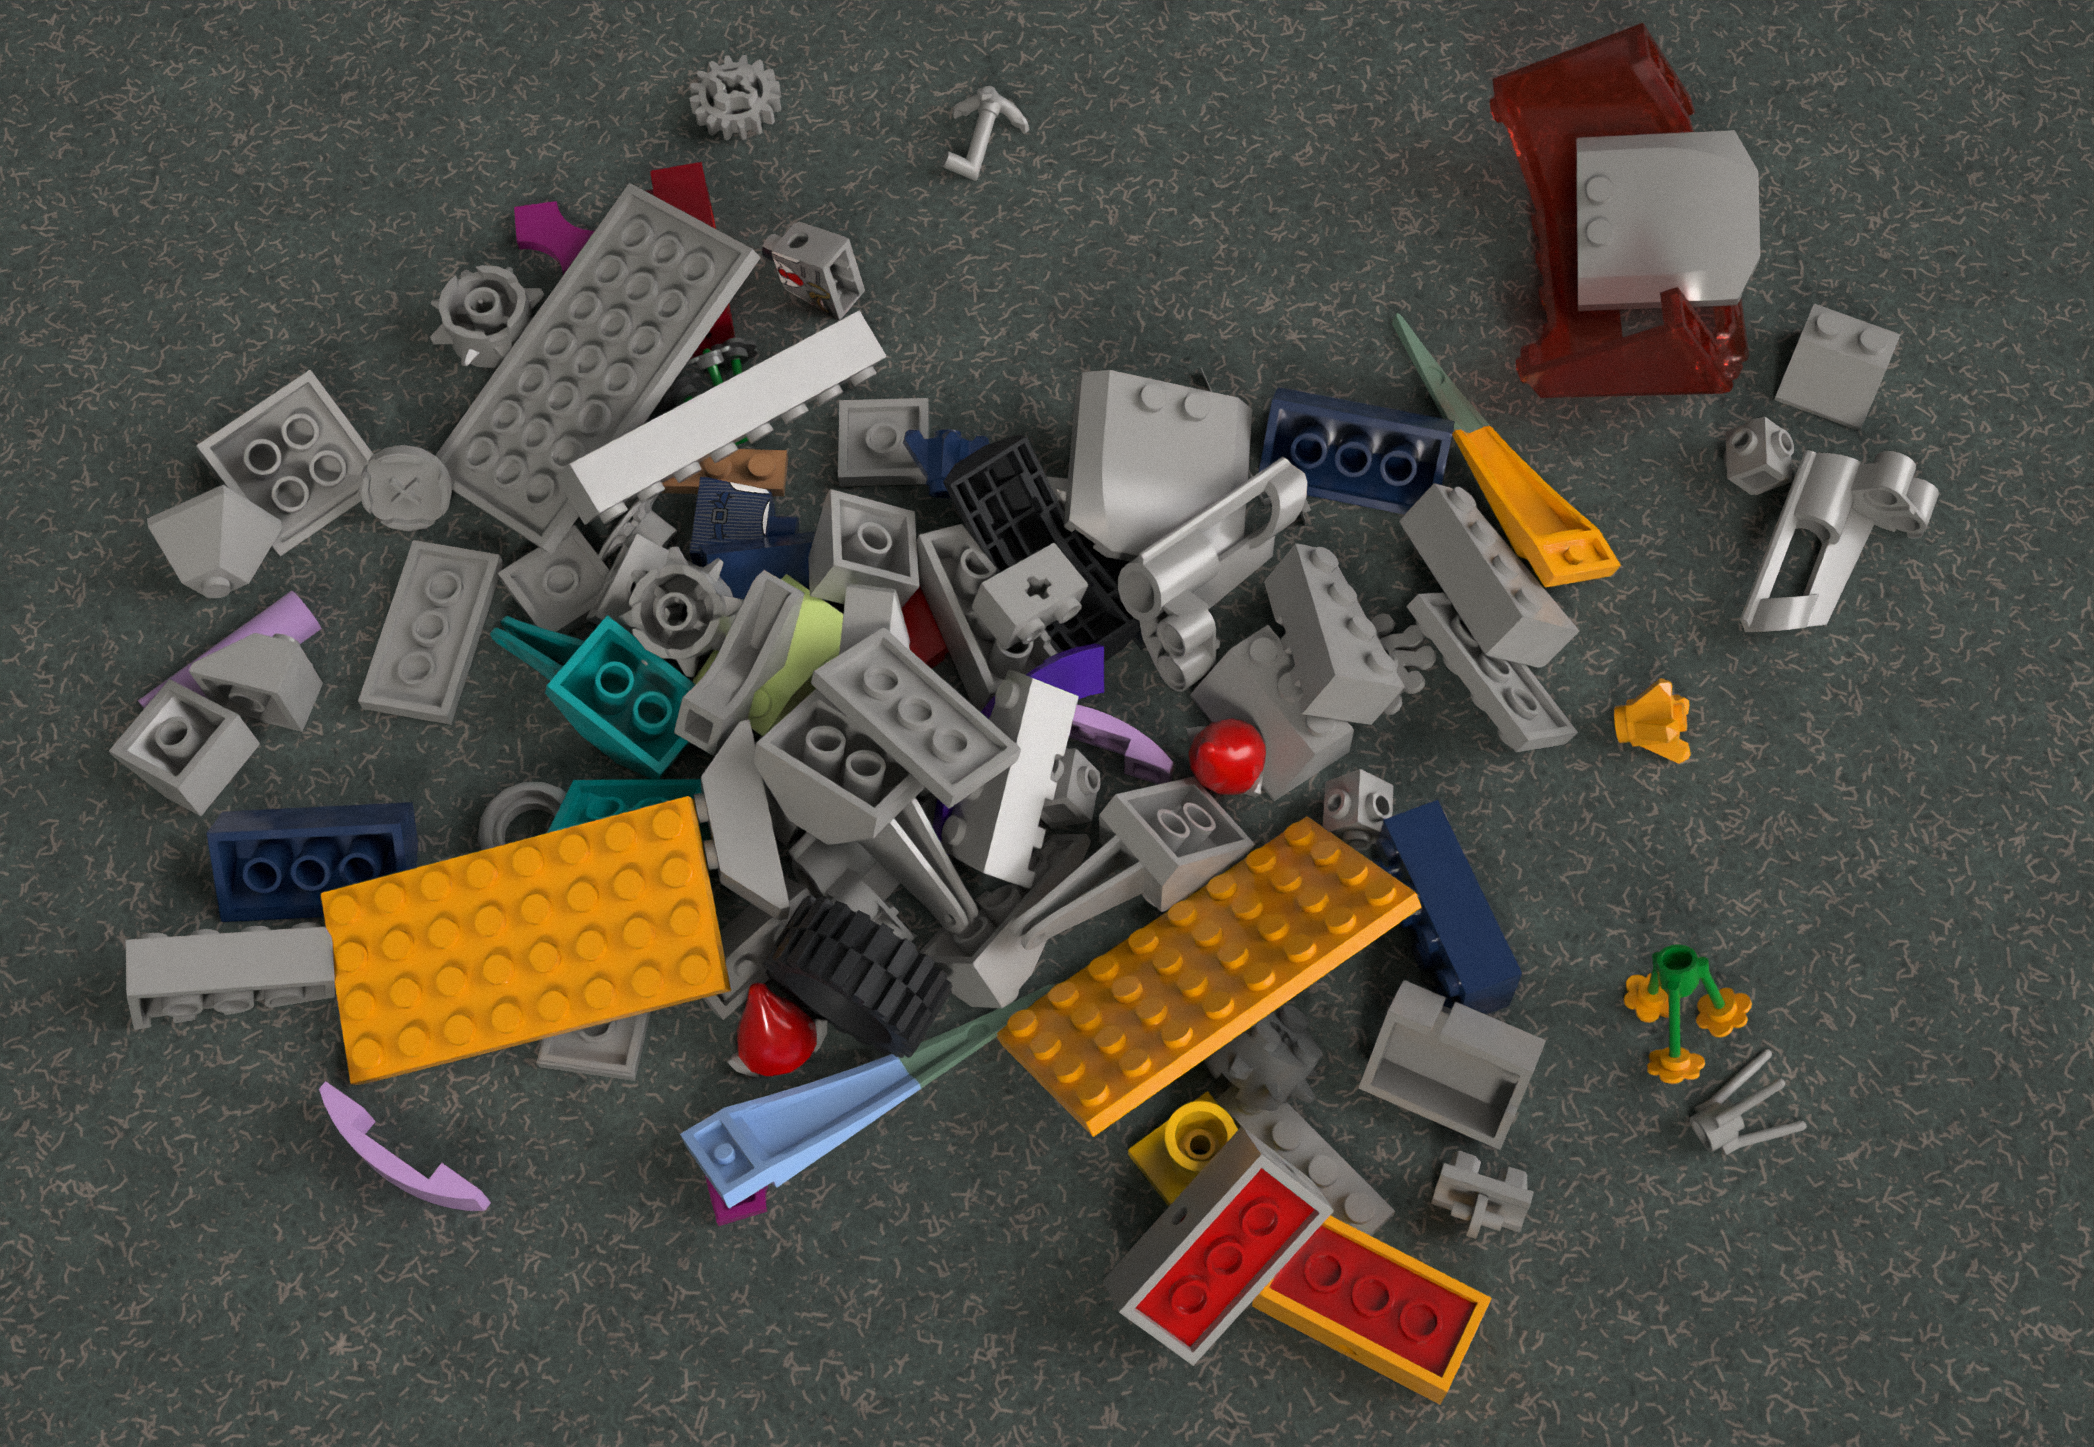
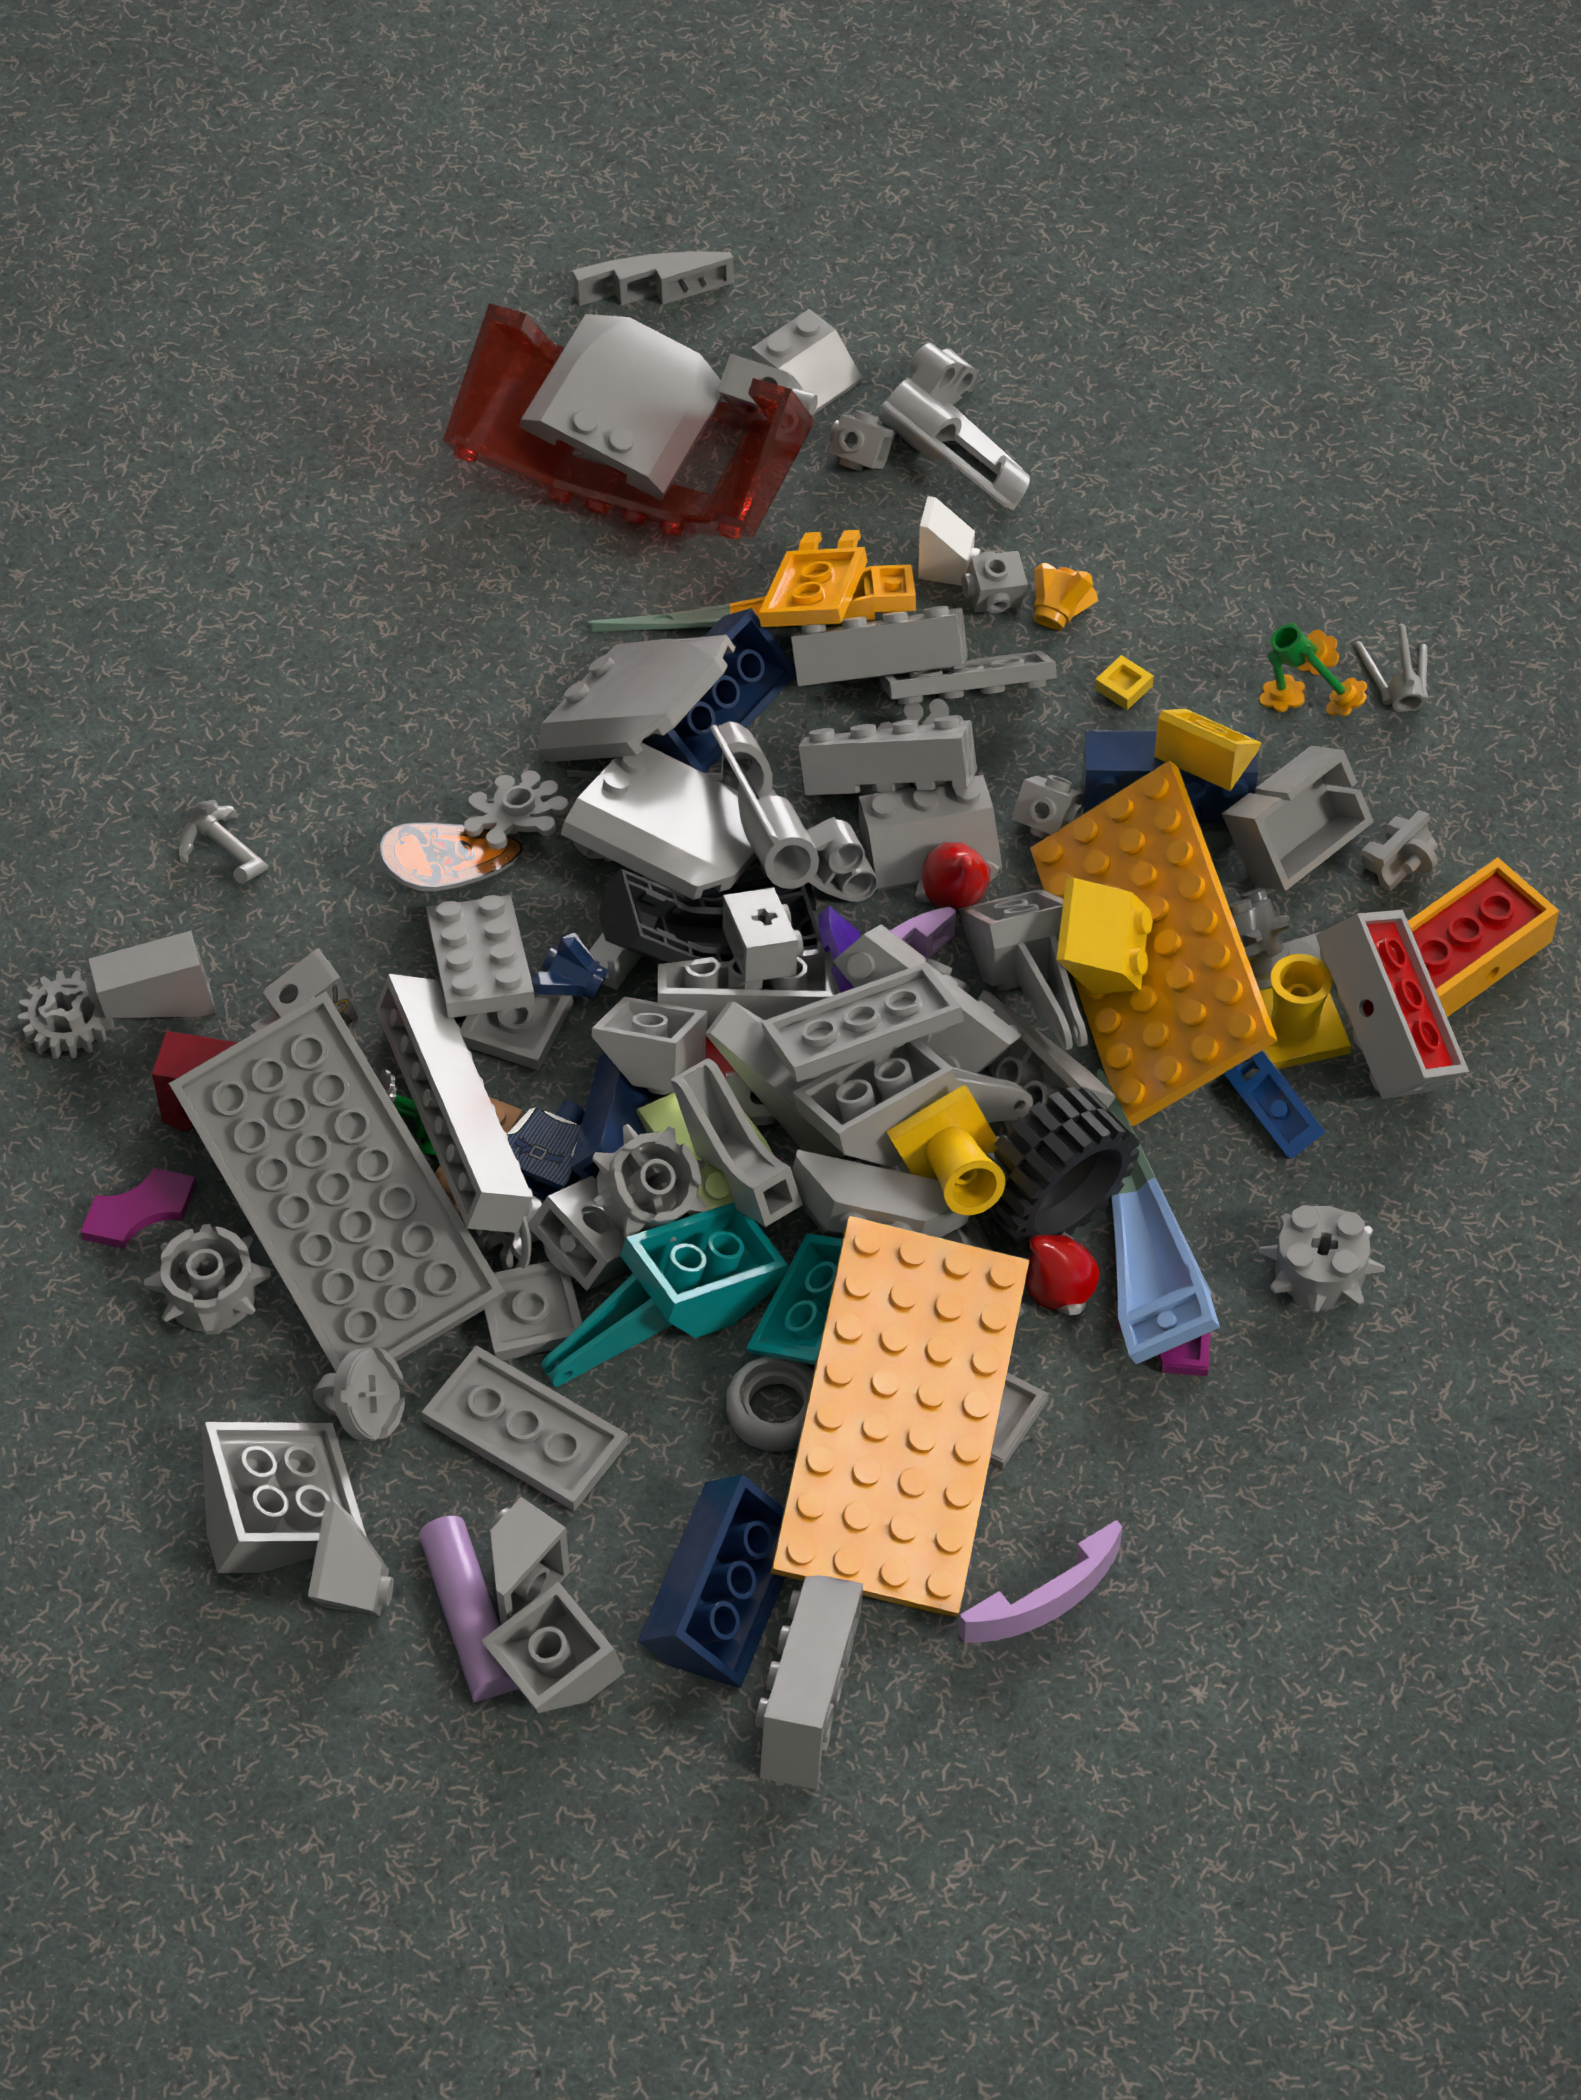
camera: 70 degrees left, 10 degrees down
(782, 140) = (152, 980): none -> light grey slope
(816, 859) = (952, 1146): none -> yellow plant
(897, 1319) = (1322, 1257): none -> light grey brick
(928, 380) = (480, 956): none -> light grey plate
(1039, 305) = (442, 856): none -> shield
(1077, 1175) = (1276, 1104): none -> blue plate
(1122, 342) = (516, 809): none -> light grey animal
(1160, 911) = (1103, 936): none -> yellow slope
(1293, 377) = (632, 695): none -> light grey wedge
(1469, 923) = (1203, 747): none -> yellow slope
(1531, 481) = (814, 583): none -> light orange tile
(1574, 828) = (1124, 682): none -> yellow plate
(1635, 649) = (995, 581): none -> light grey brick
(1655, 583) = (944, 544): none -> white slope
(1758, 350) = (739, 375): none -> light grey torso
(1883, 197) = (663, 274): none -> light grey slope

